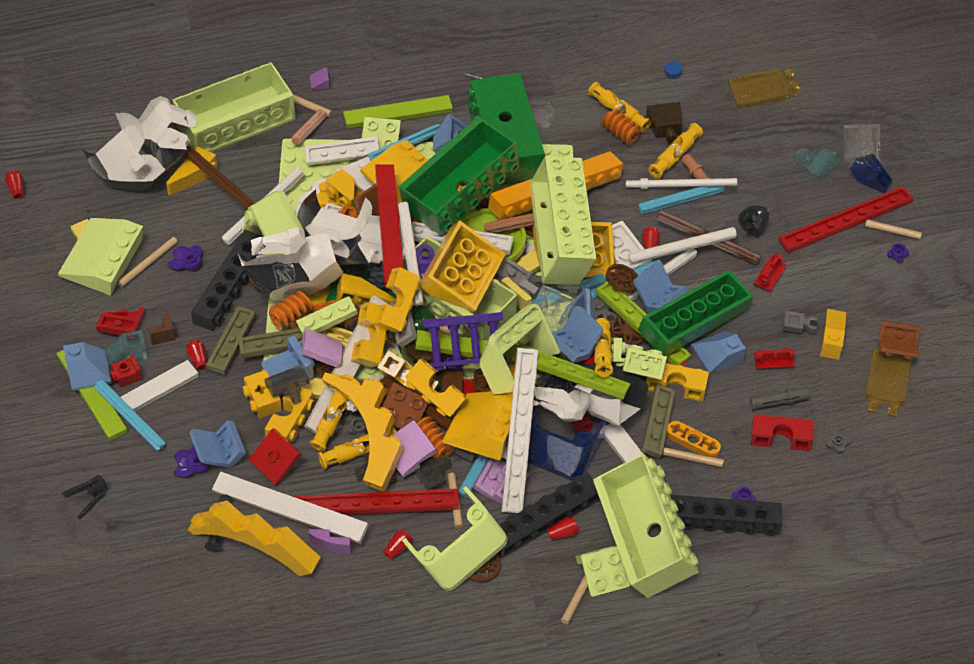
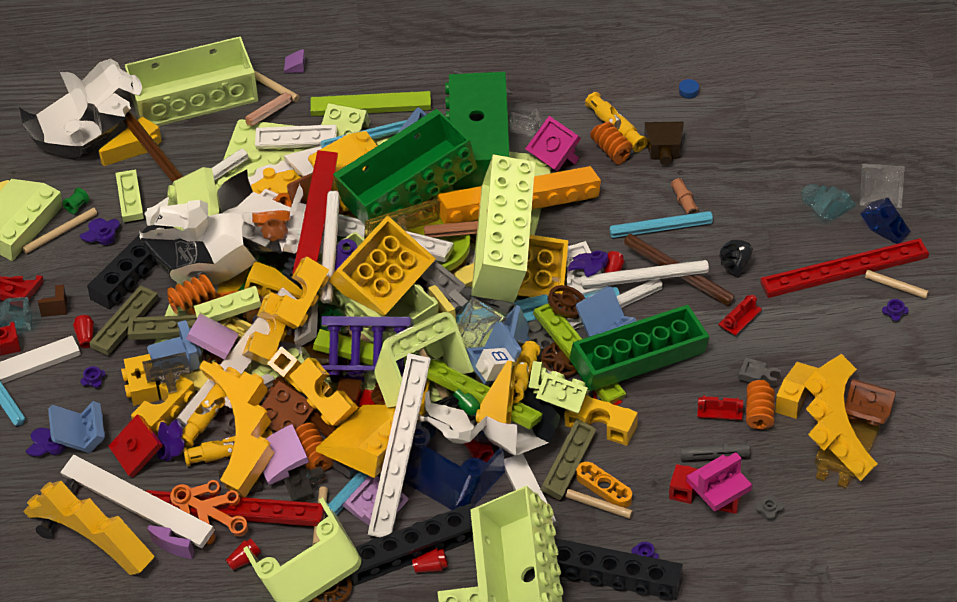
camera: 15 degrees right, 5 degrees down
(157, 230) = (75, 201): none -> green bush
(203, 222) = (129, 195): none -> yellowish green plate
(216, 392) = (93, 376): none -> dark purple plate
(307, 446) = (171, 440): none -> dark purple plate
(341, 187) = (282, 172): yellow slope -> none
(349, 231) = (261, 217): none -> orange plate
(355, 505) = (206, 507): none -> orange plant
(357, 243) = (274, 229): none -> dark orange plate
(469, 217) = (408, 217): none -> clear yellow tile
(564, 382) = (467, 402): none -> green cylinder
(573, 134) = (554, 144): none -> dark pink bracket
(581, 344) = (492, 362): none -> white brick
(594, 378) = (499, 398): none -> yellow slope
(634, 239) = (590, 262): none -> dark purple plate
(644, 183) = (623, 206): white bar -> none
(675, 151) = (668, 173): yellow piece -> none
(719, 351) = (659, 394): medium blue slope -> none
(763, 87) = (786, 116): clear yellow tile -> none
(795, 425) = (720, 481): none -> dark pink bracket
(808, 352) = (760, 405): none -> orange piece
(871, 350) = (833, 425): none -> yellow arch

